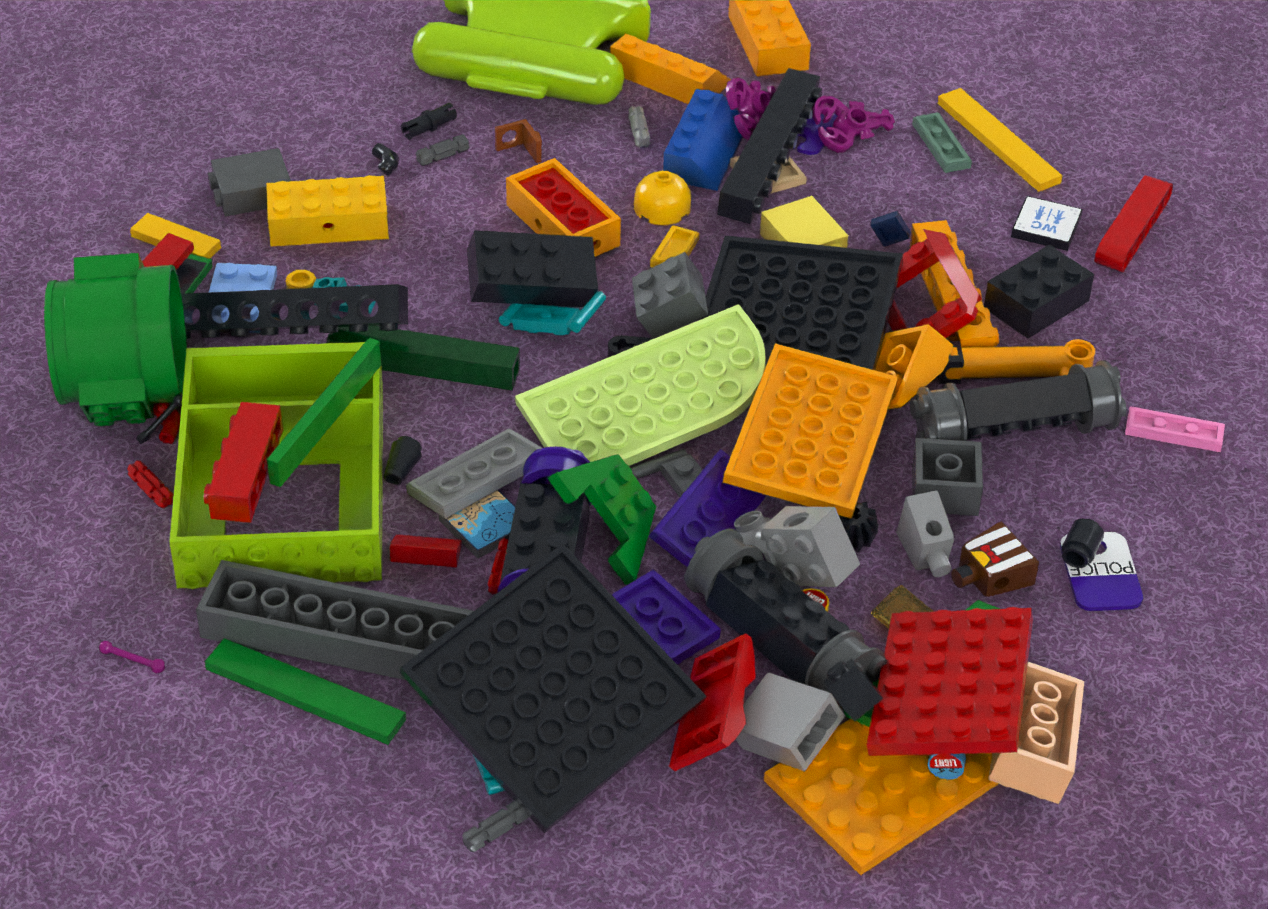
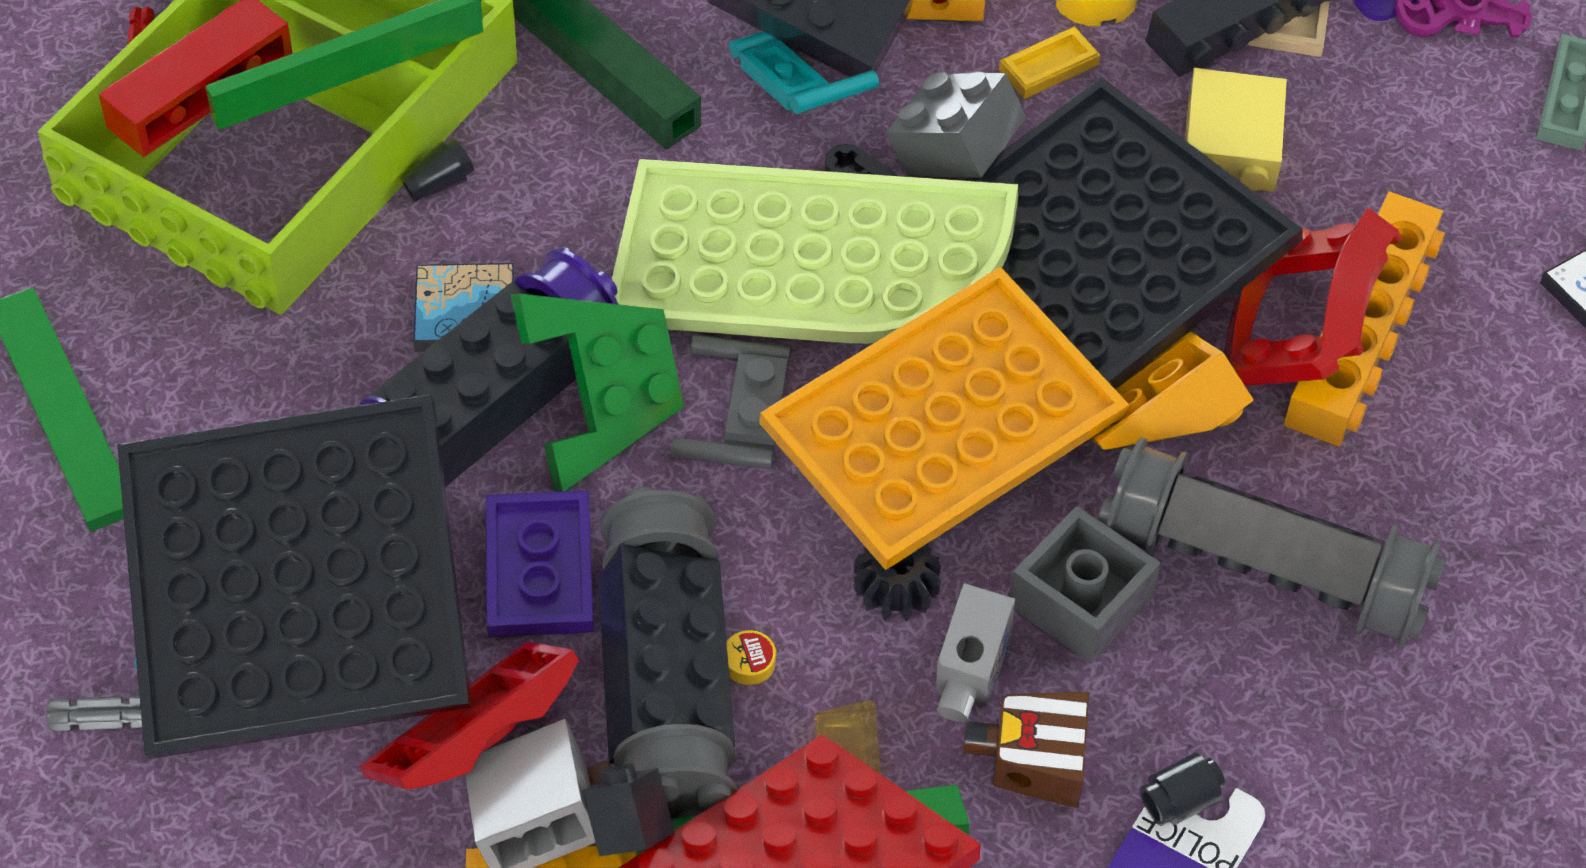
camera: 35 degrees right, 10 degrees up
(320, 619) = (138, 321): dark grey brick -> none
(425, 550) = (360, 304): red slope -> none
(473, 473) = (506, 236): light grey tile -> none
(703, 510) = (717, 453): dark purple tile -> none
(802, 543) = (780, 568): light grey brick -> none
(890, 228) = (1358, 182): dark blue tile -> none
(1015, 361) = (1413, 503): light orange piece -> none
(1038, 291) = (1486, 385): black brick -> none
(1175, 429) = (1498, 700): bright pink tile -> none

